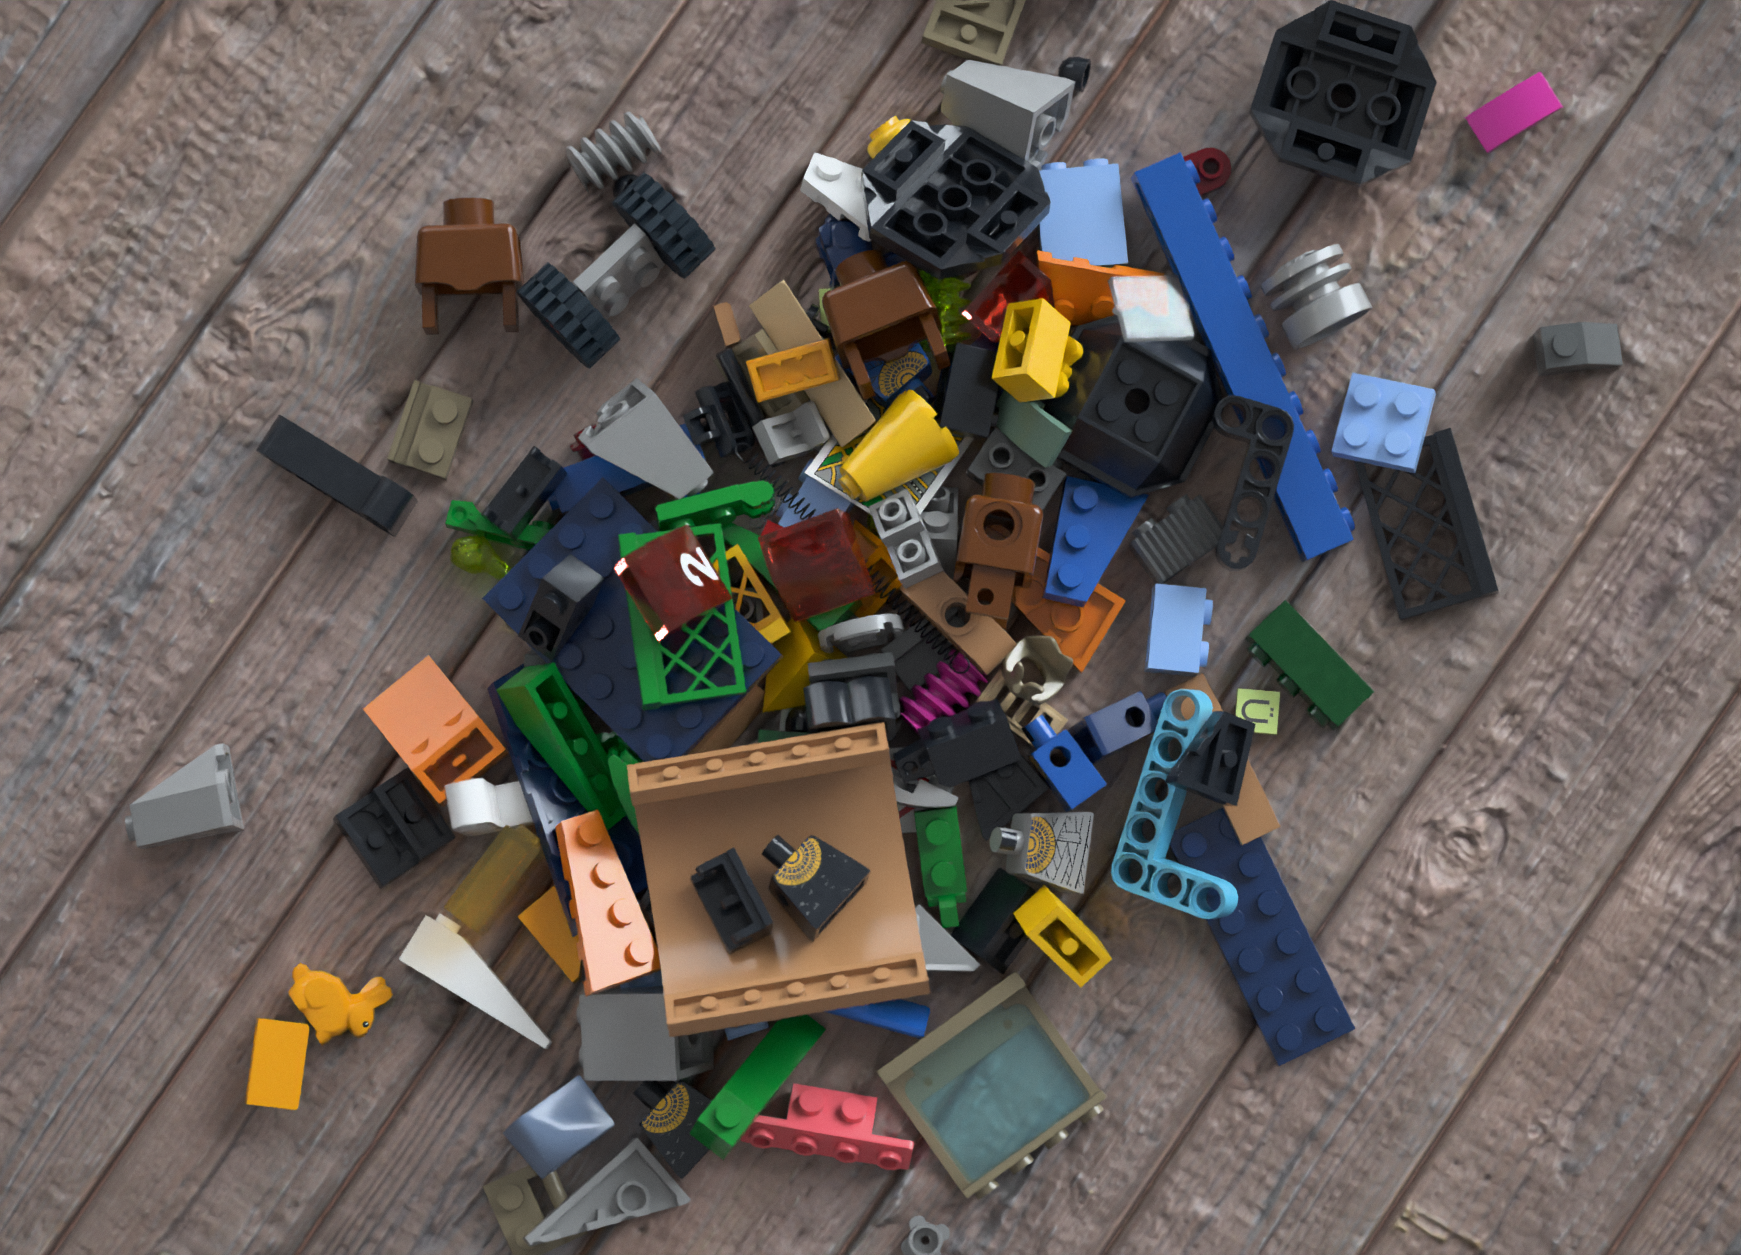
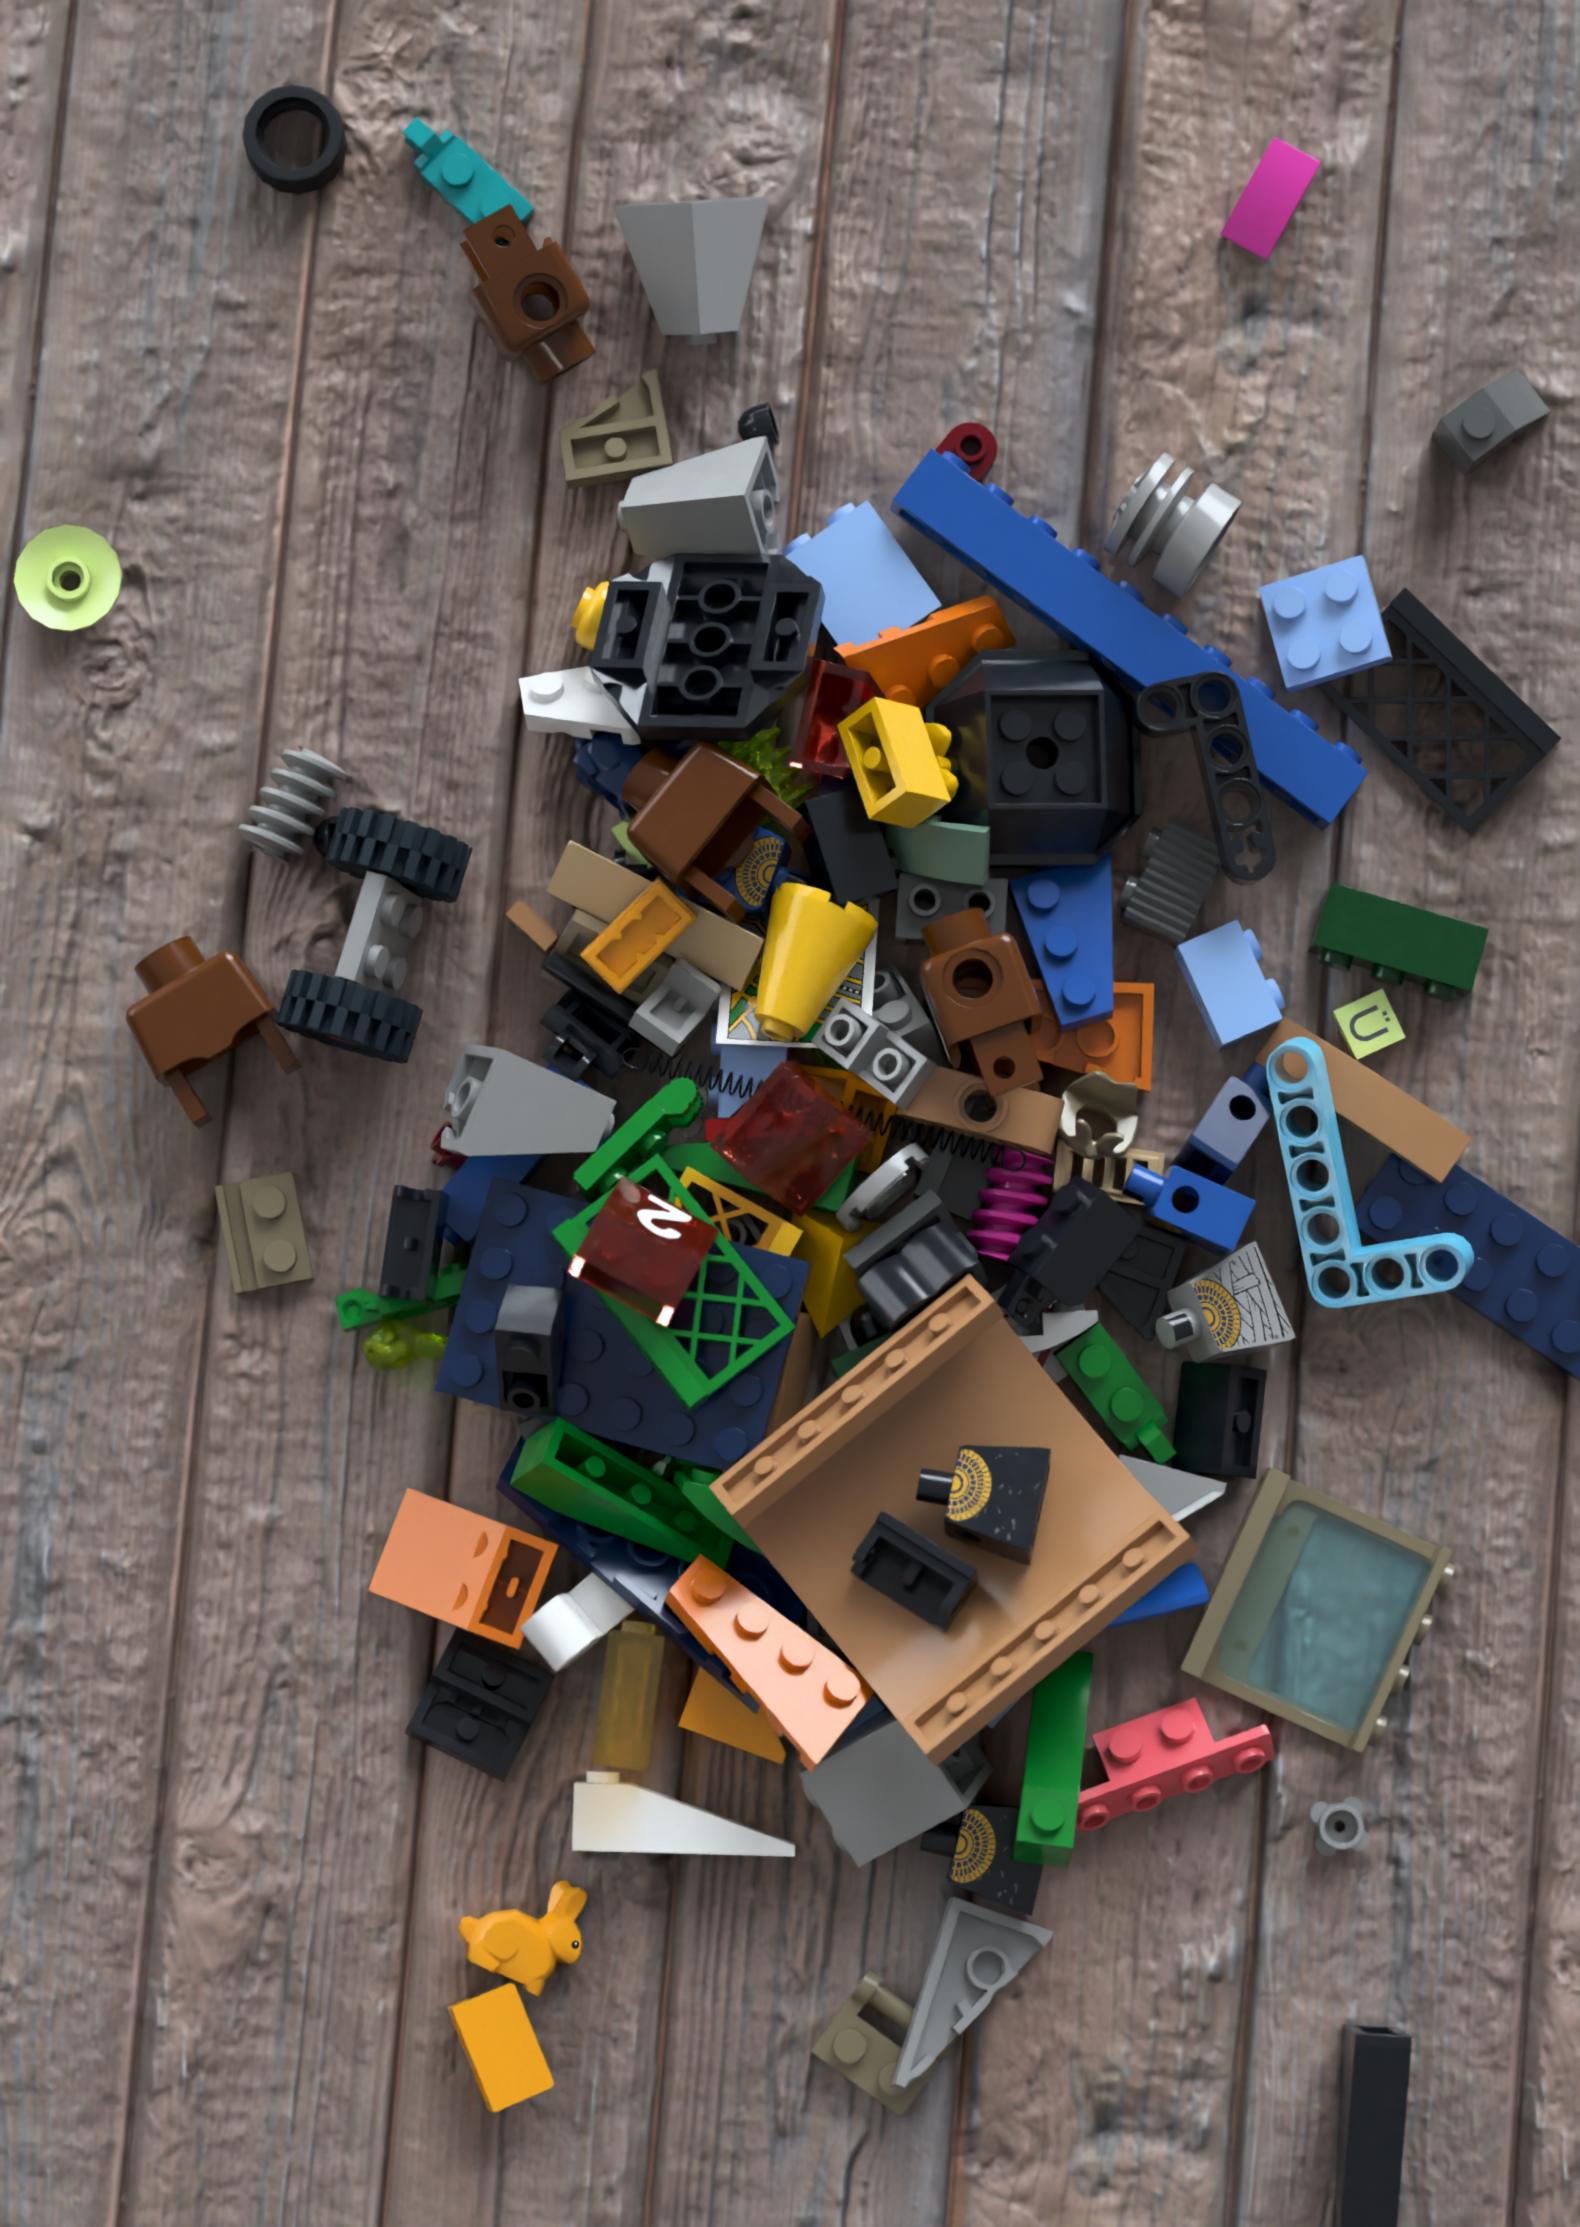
camera: 25 degrees left, 0 degrees up
(189, 804) = (233, 1810): light grey slope -> none
(337, 475) = (189, 1344): black beam -> none
(559, 1127) = (861, 1936): sand blue piece -> none
(1062, 936) = (1300, 1399): yellow brick -> none
(1151, 308) = (998, 641): clear piece -> none
(1215, 759) = (1359, 1104): black wing -> none
(1350, 53) = (1086, 230): black piece -> none

